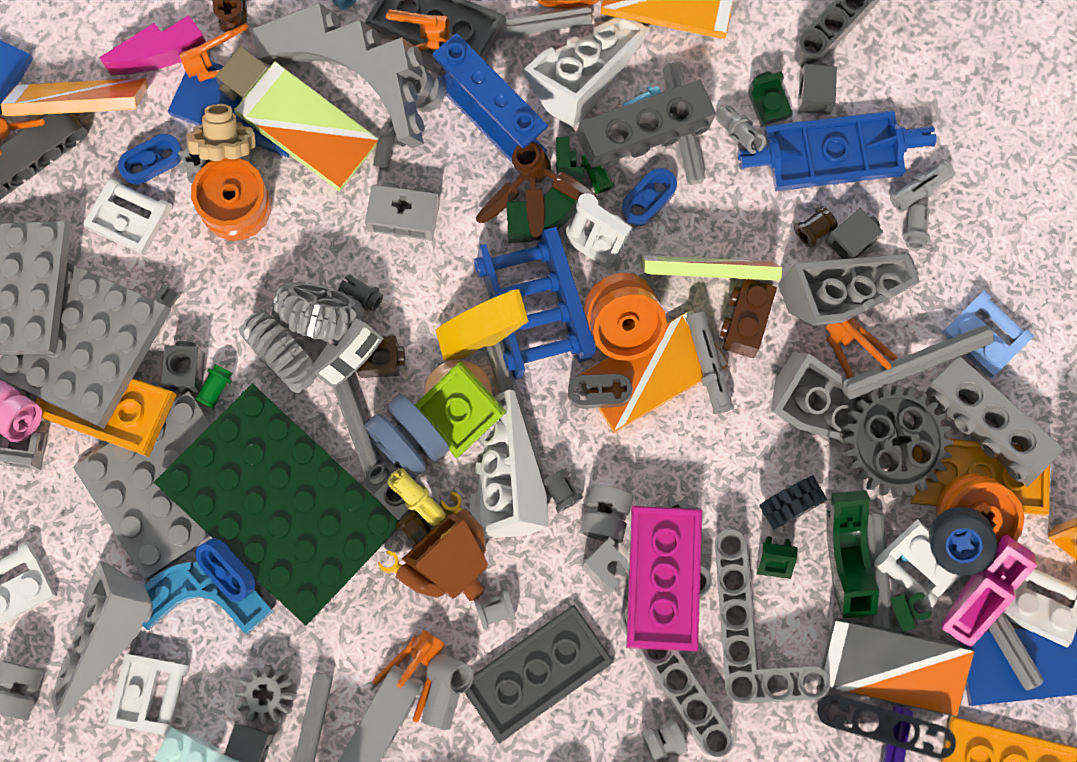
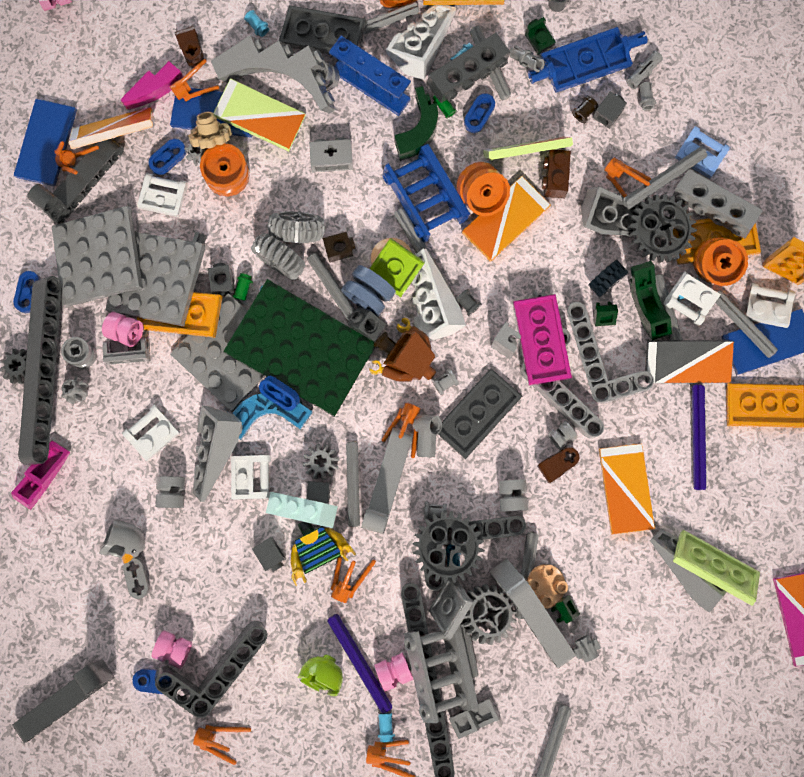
camera: 10 degrees left, 5 degrees up
(240, 75) = (211, 91): dark tan brick -> none
(341, 361) = (317, 254): slope -> none
(367, 296) = (323, 211): dark grey pin -> none
(384, 148) = (310, 116): dark grey arm -> none
(416, 497) = (383, 324): light yellow axle -> none
(432, 27) = (323, 36): orange plant -> none
(481, 326) = (398, 213): yellow slope -> none
(533, 167) = (405, 110): reddish brown plant -> none
(599, 383) = (476, 233): dark grey beam -> none
(604, 525) = (498, 317): light grey wheel -> none
(606, 235) = (460, 143): white plate -> none
(713, 375) = (539, 205): light grey pin -> none
(817, 88) = (567, 23): dark grey brick -> none
(844, 287) = (611, 142): light grey wedge -> none
(887, 722) = (691, 393): black beam -> none
(906, 611) = (688, 327): dark green tile -> none
(963, 553) = (720, 283): black wheel -> none
(989, 592) = (735, 303): dark pink slope -> none

